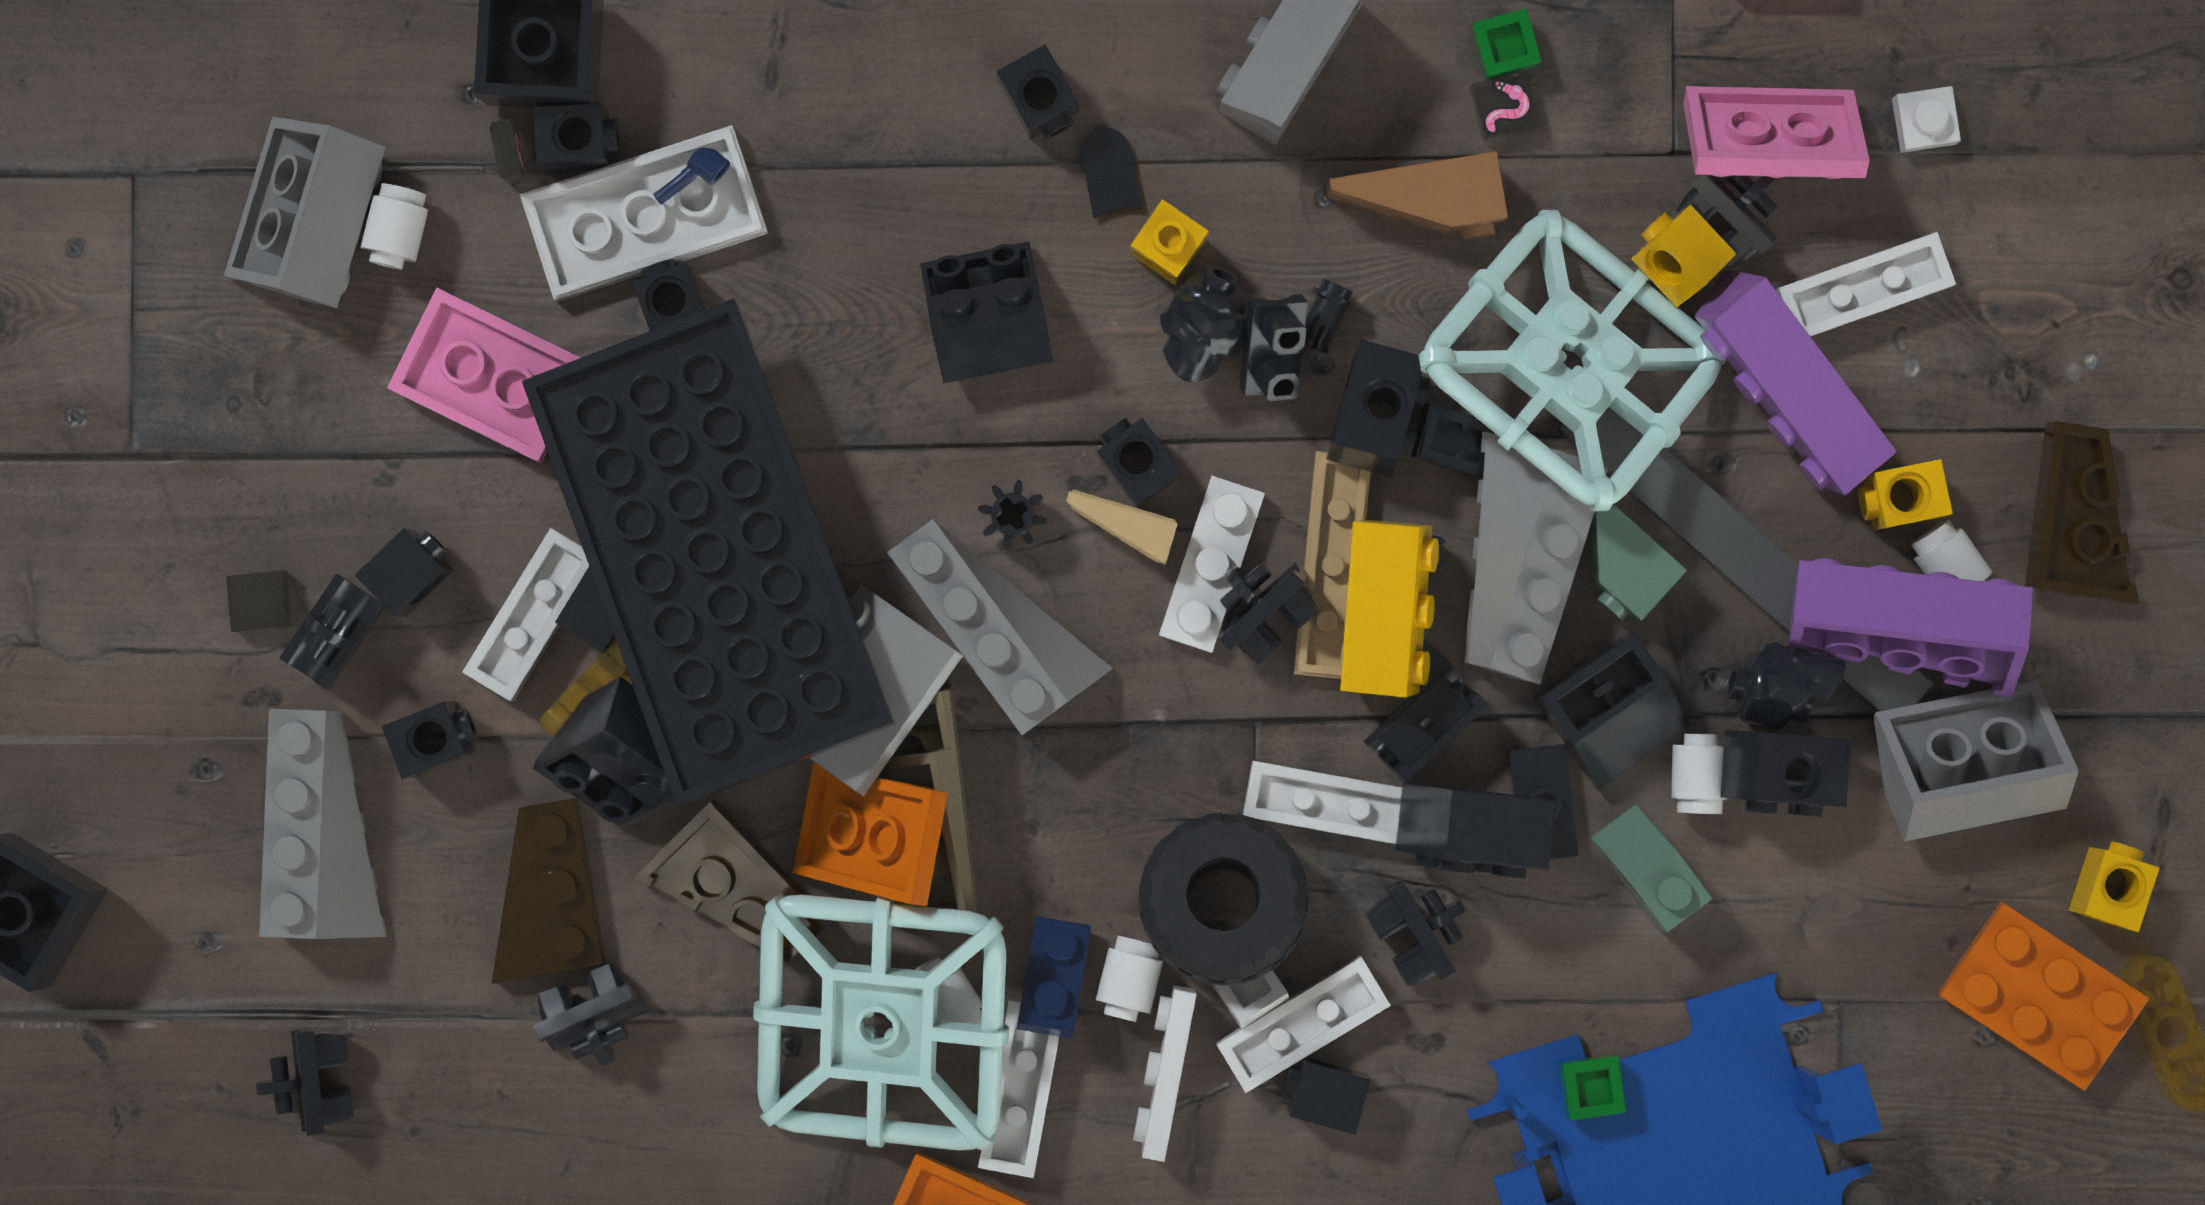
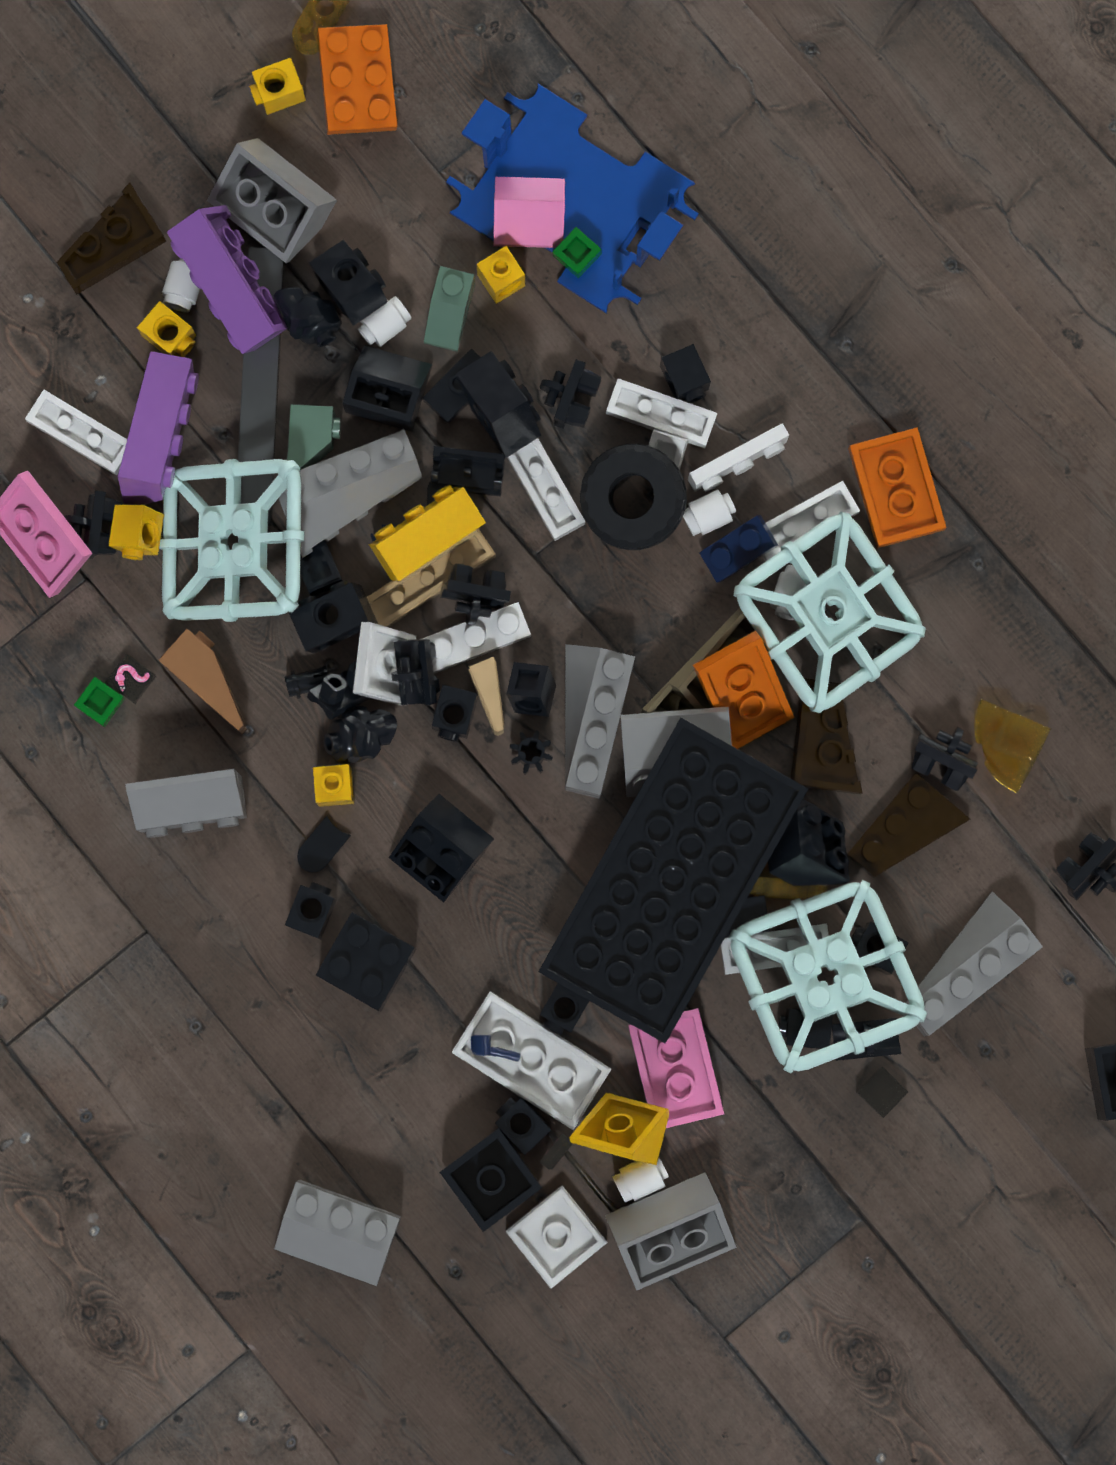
camera: 135 degrees left, 5 degrees down
(413, 73) = (556, 1236): none -> white tile
(420, 609) = (817, 998): none -> light aqua plate
(465, 249) = (623, 1128): none -> yellow slope
(545, 1109) = (1008, 743): none -> clear yellow brick
(922, 108) = (366, 962): none -> black brick
(1088, 577) = (531, 689): none -> black brick
(1225, 452) = (415, 671): none -> black hips
(1266, 422) = (377, 661): none -> white tile
(1641, 968) = (501, 274): none -> yellow brick
(1695, 1070) = (529, 212): none -> bright pink slope

